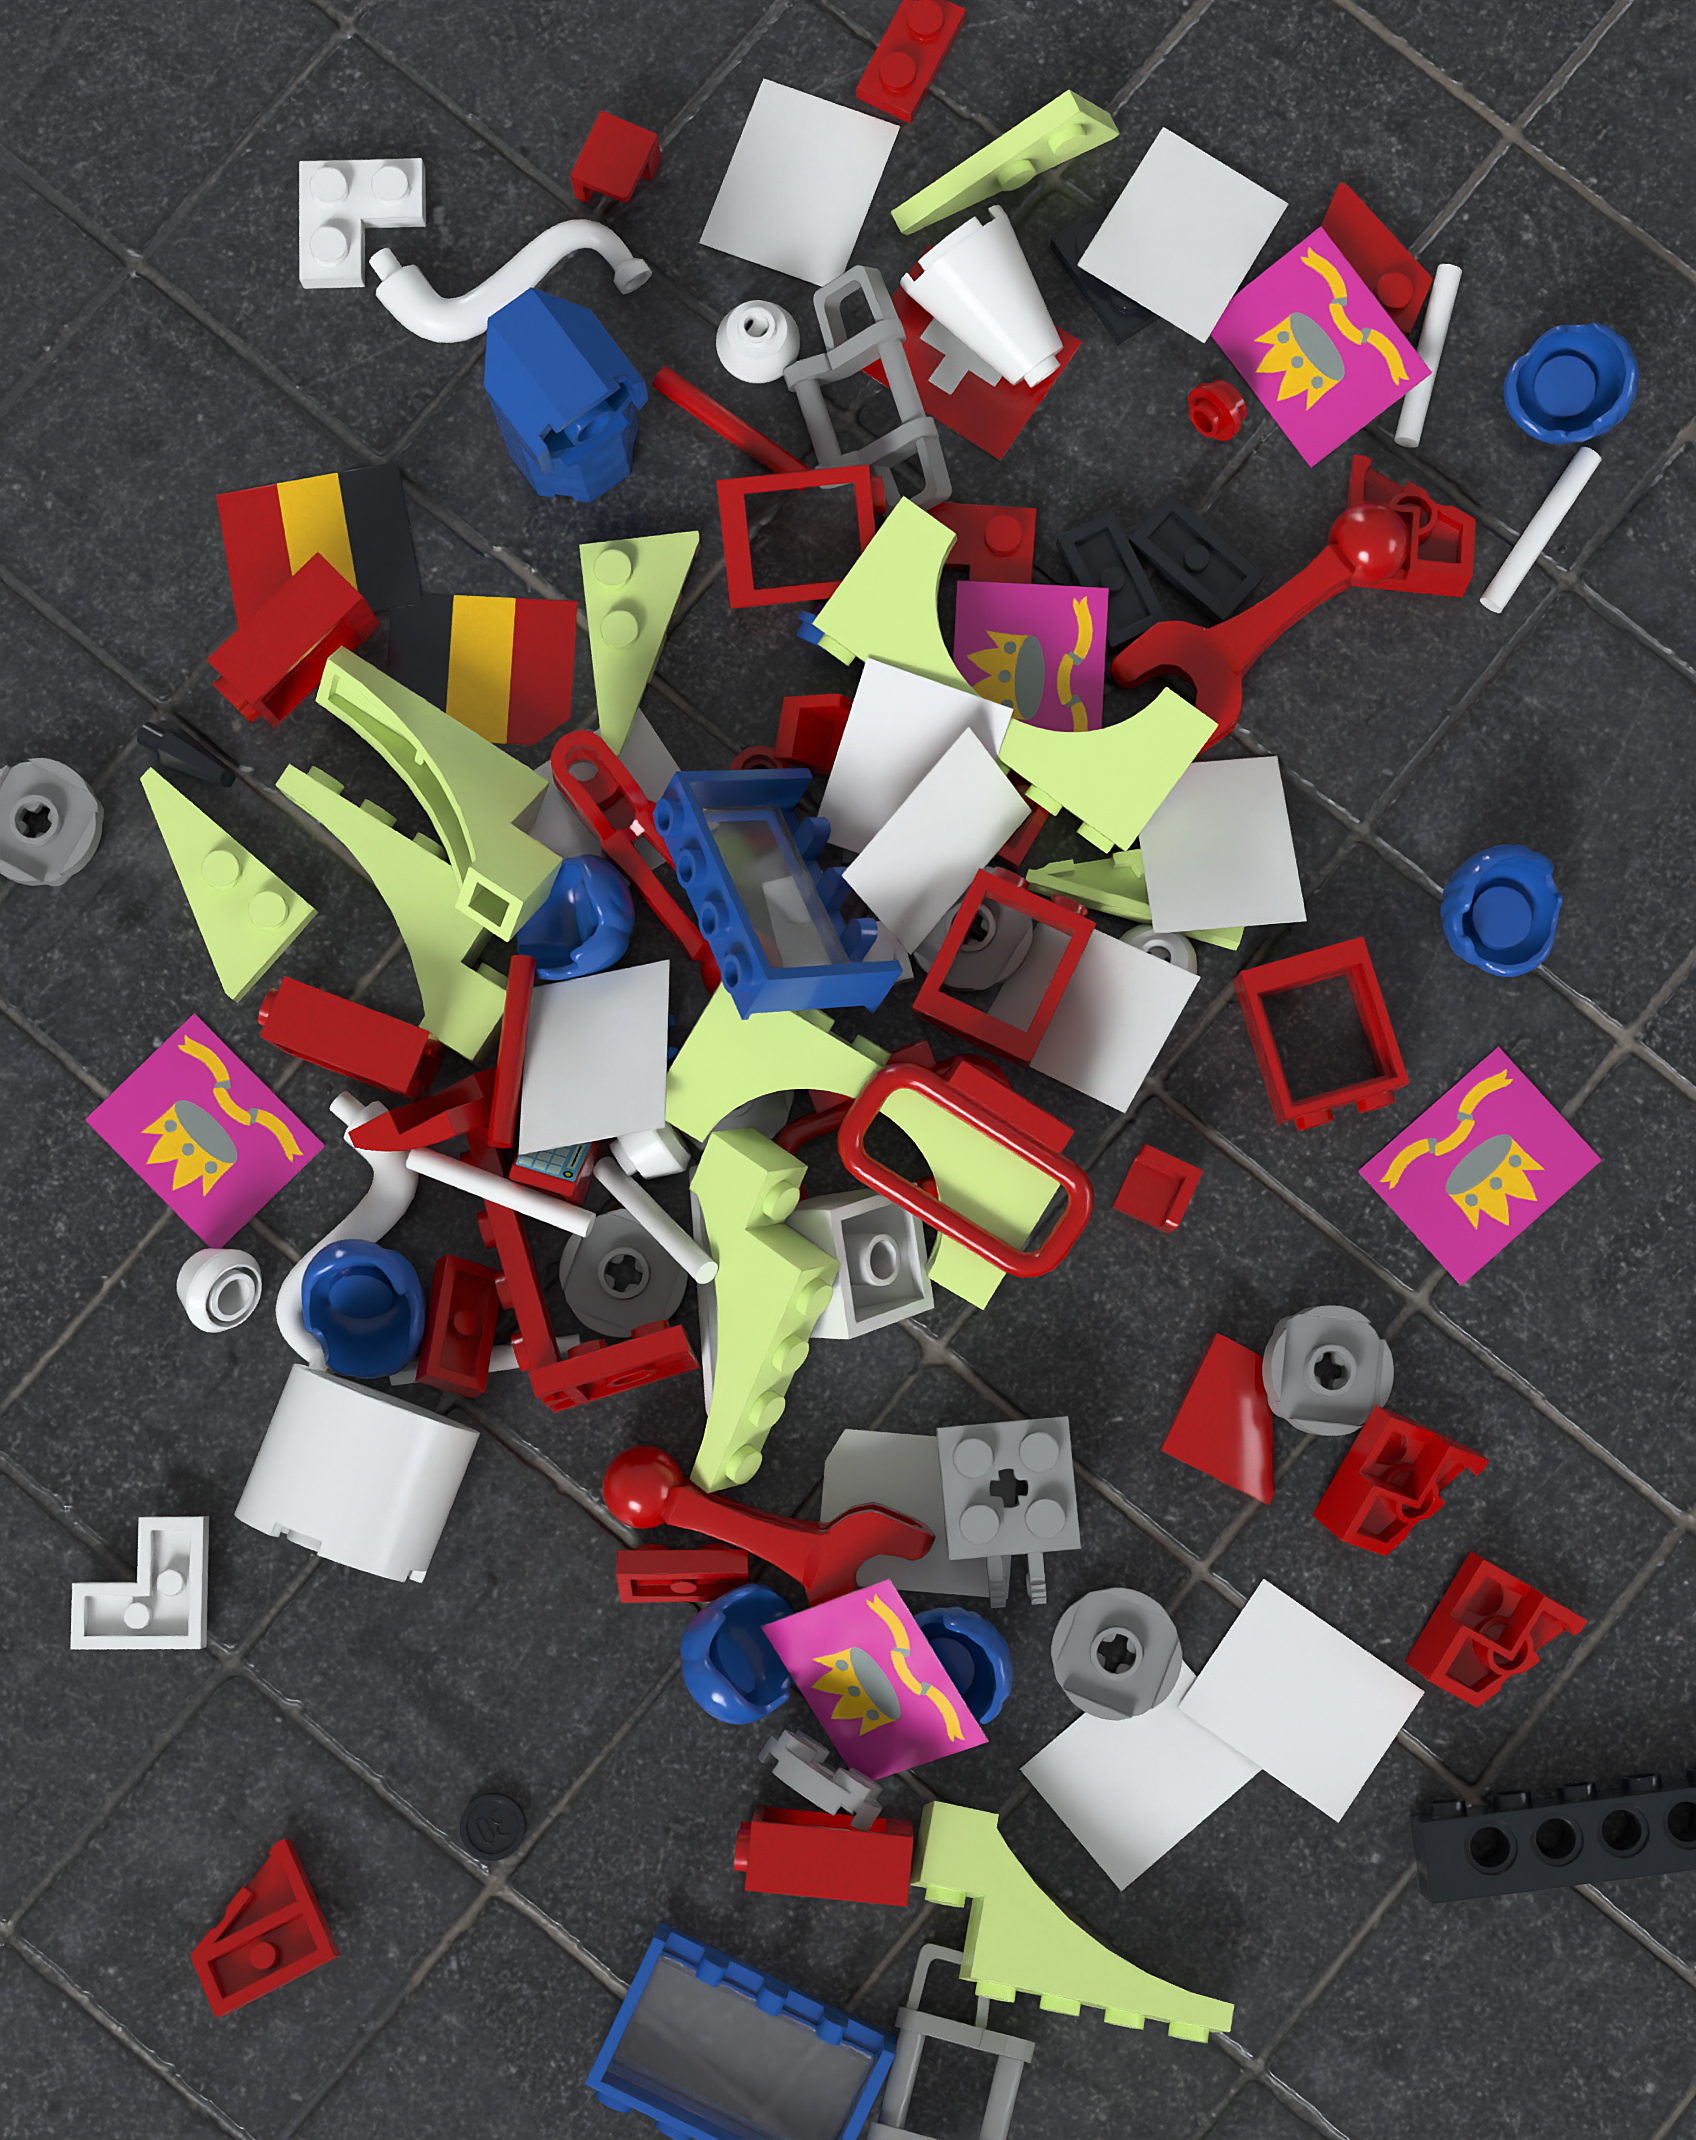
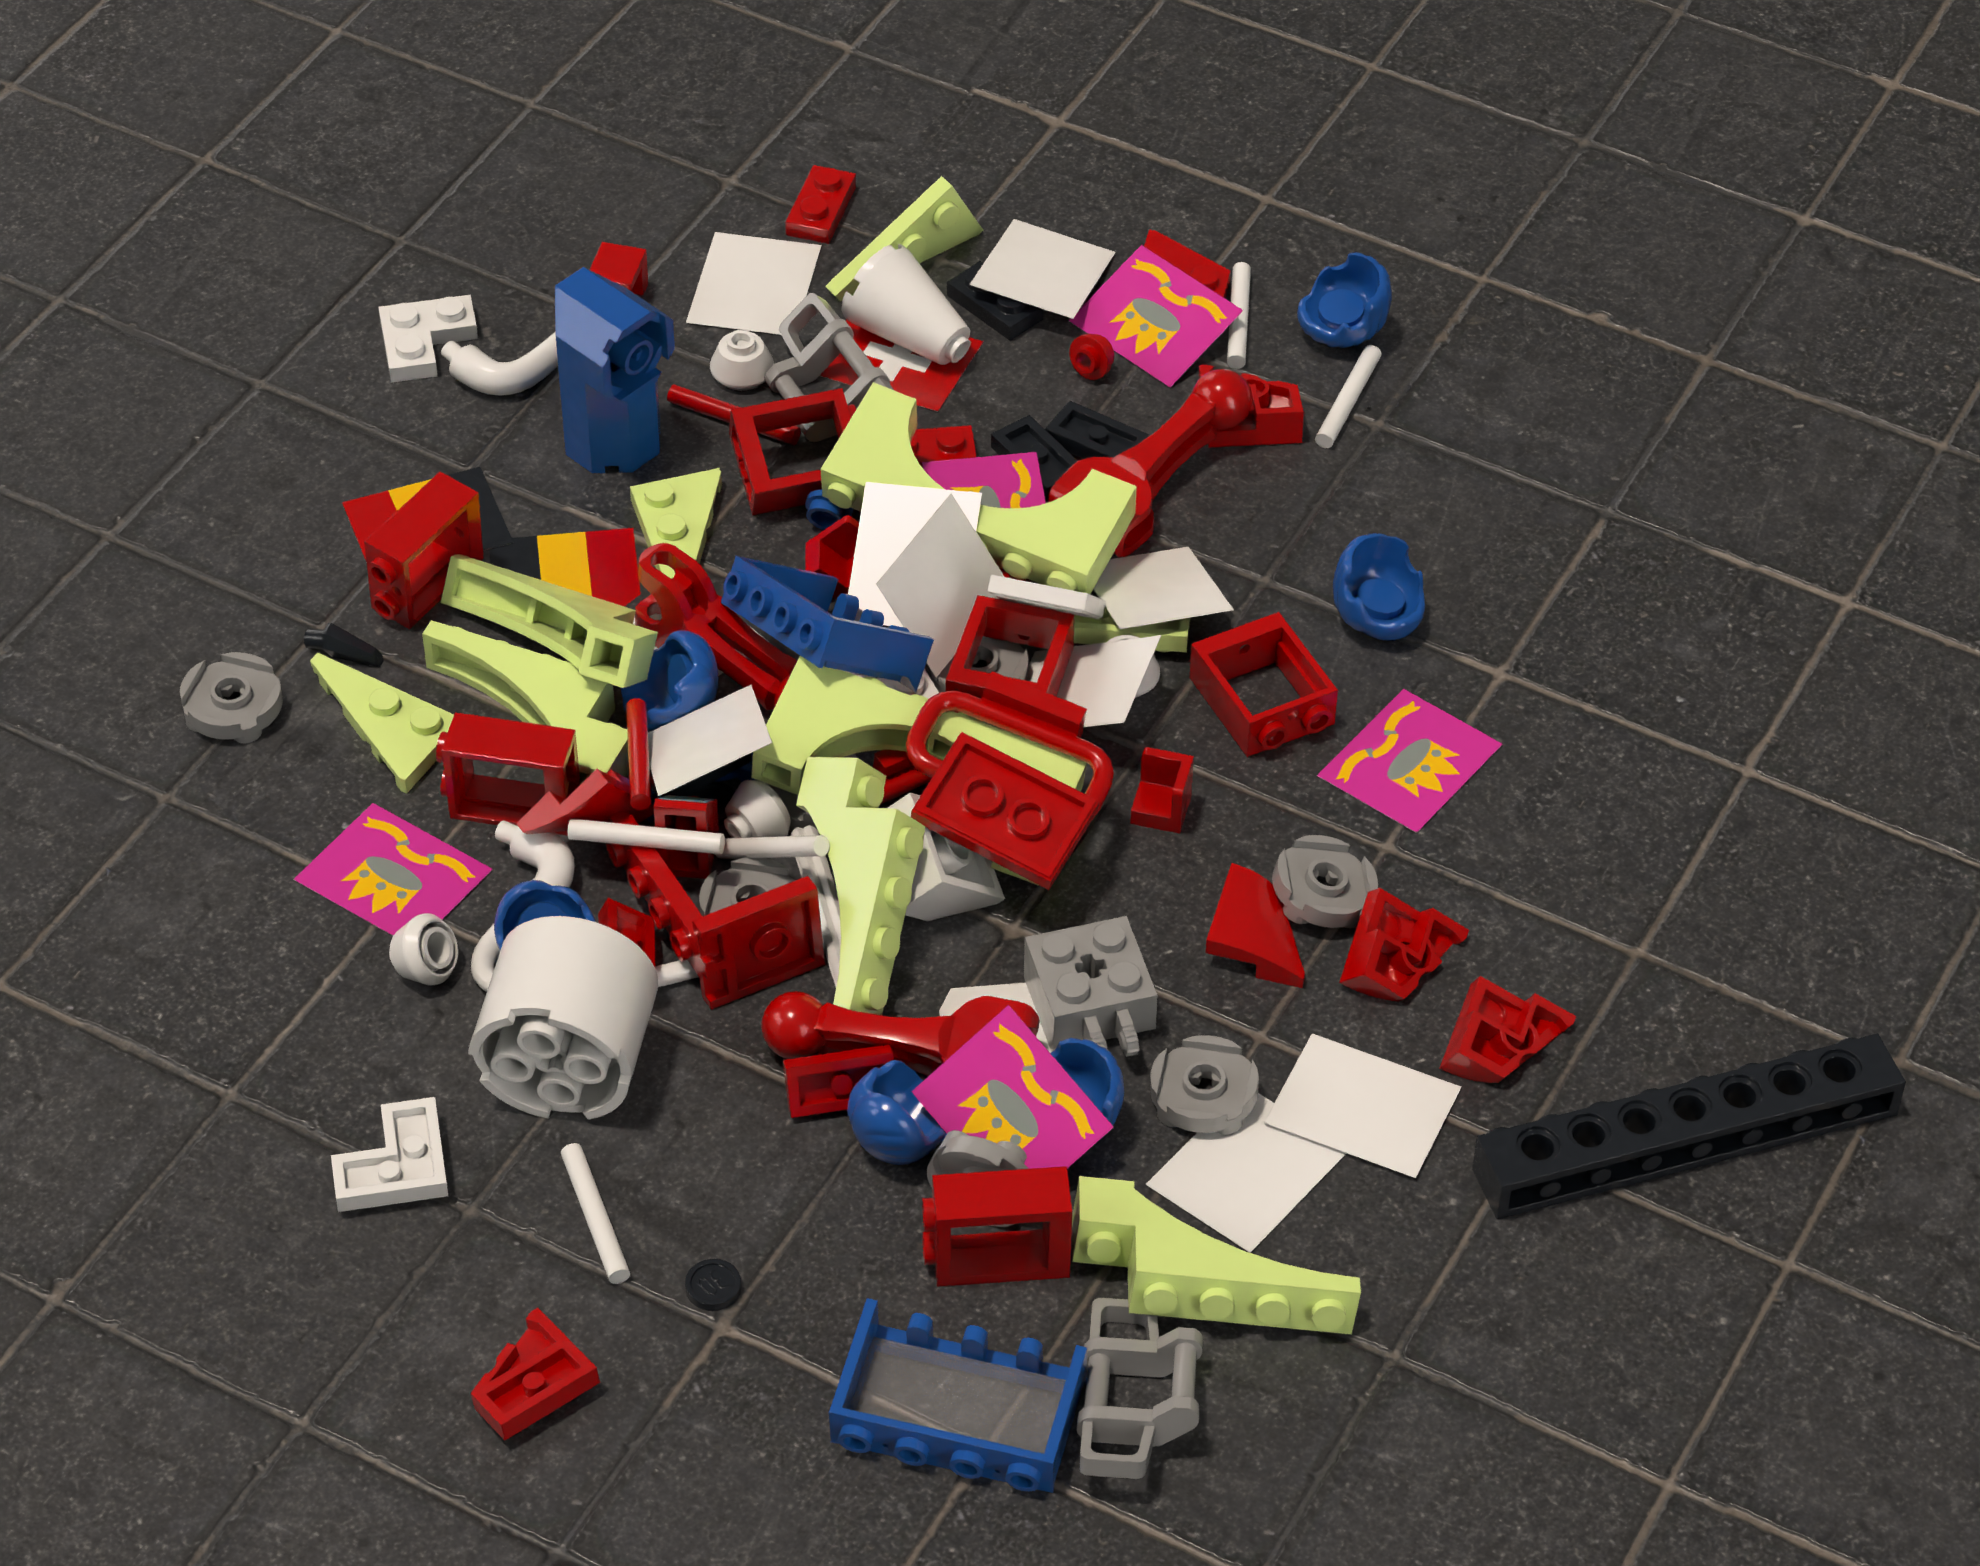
camera: 15 degrees left, 35 degrees down
(372, 1703) = (595, 1213): none -> white bar
(943, 1259) = (1005, 810): none -> red tile
(1067, 882) = (1046, 597): none -> white tile

